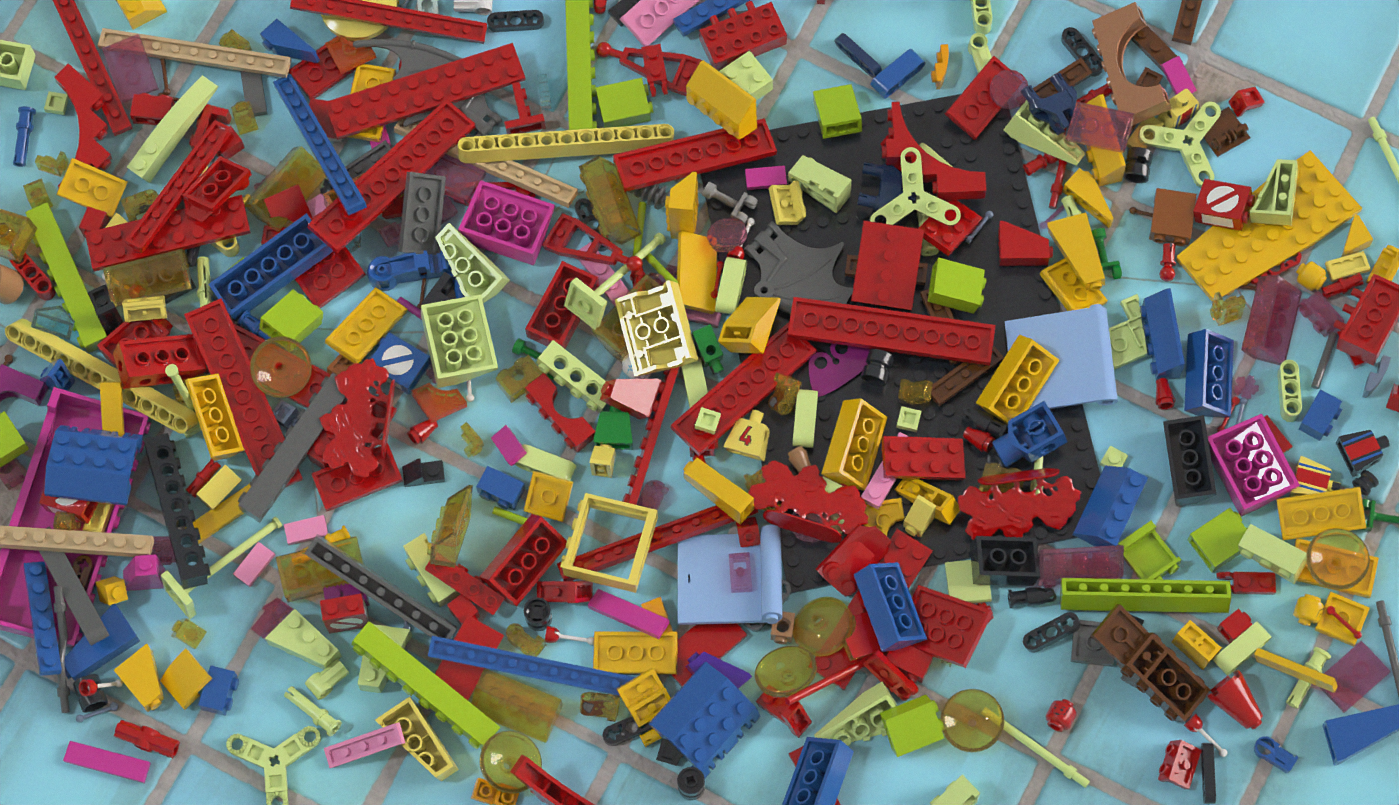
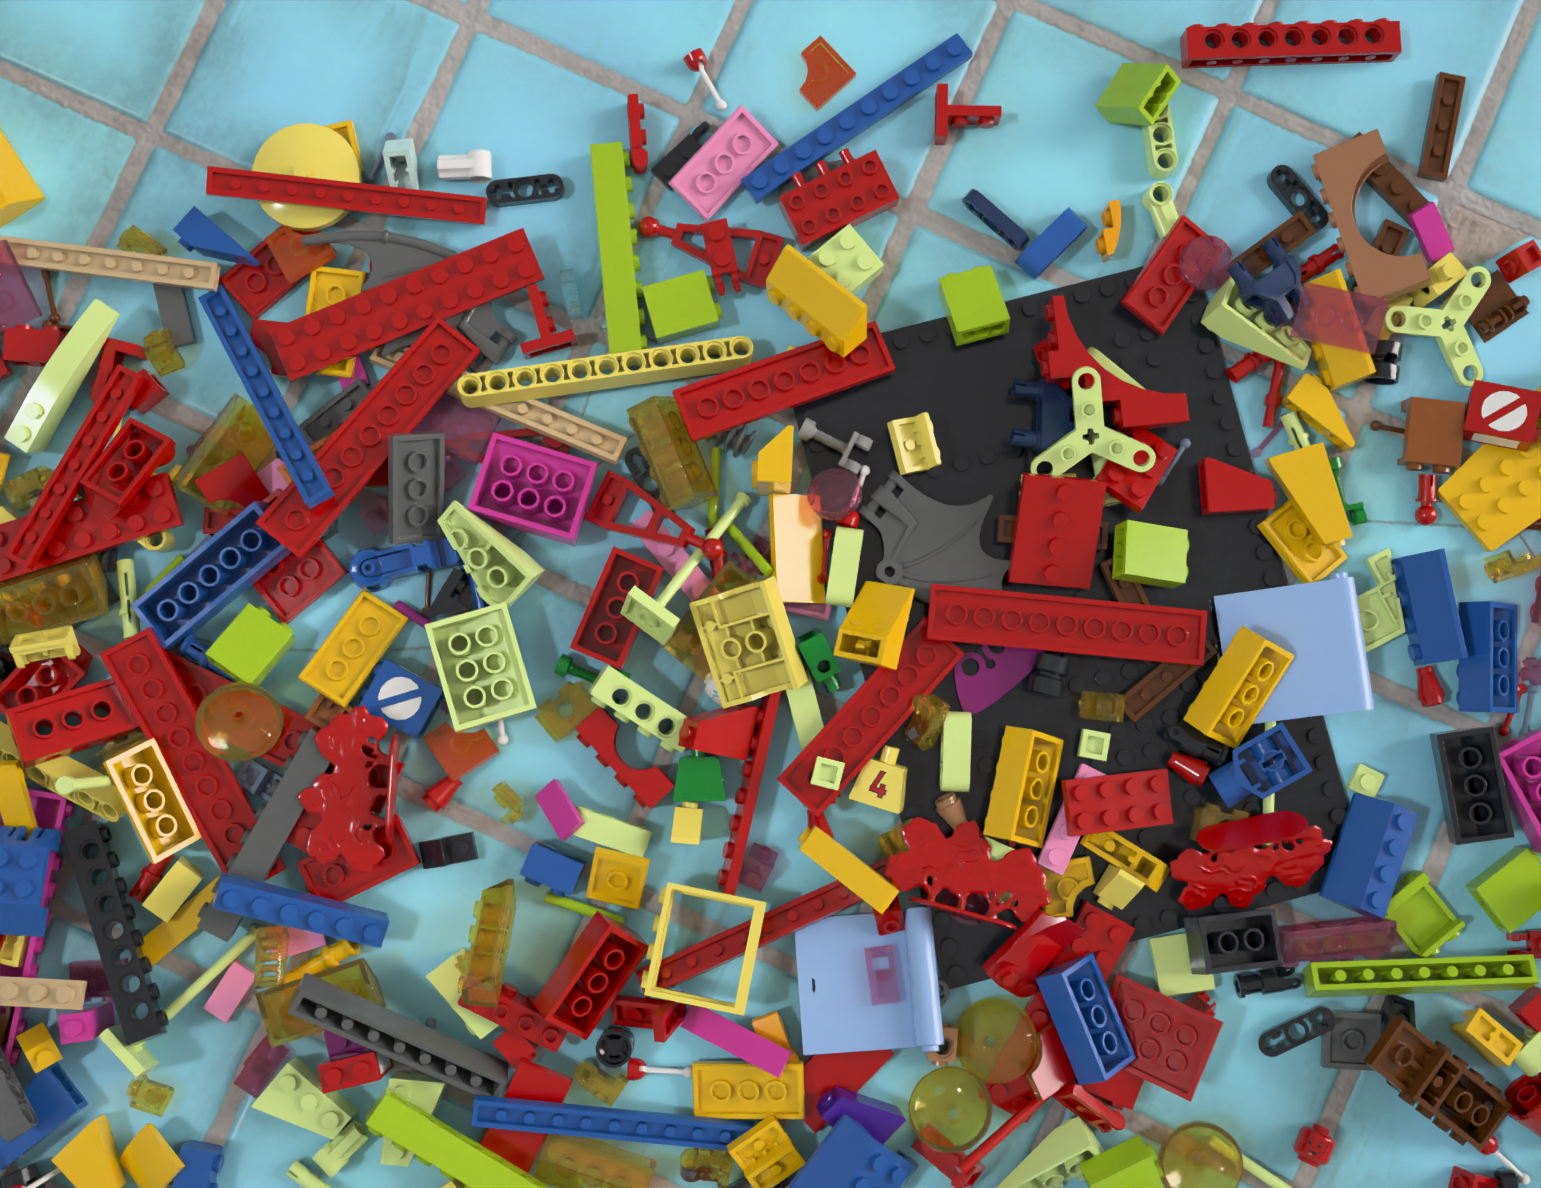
camera: 10 degrees left, 15 degrees up
(288, 531) = (270, 939): none -> clear yellow slope
(315, 498) = (300, 910): none -> blue brick
(765, 177) = (881, 405): dark pink tile -> none
(821, 183) = (957, 412): yellowish green wedge -> none

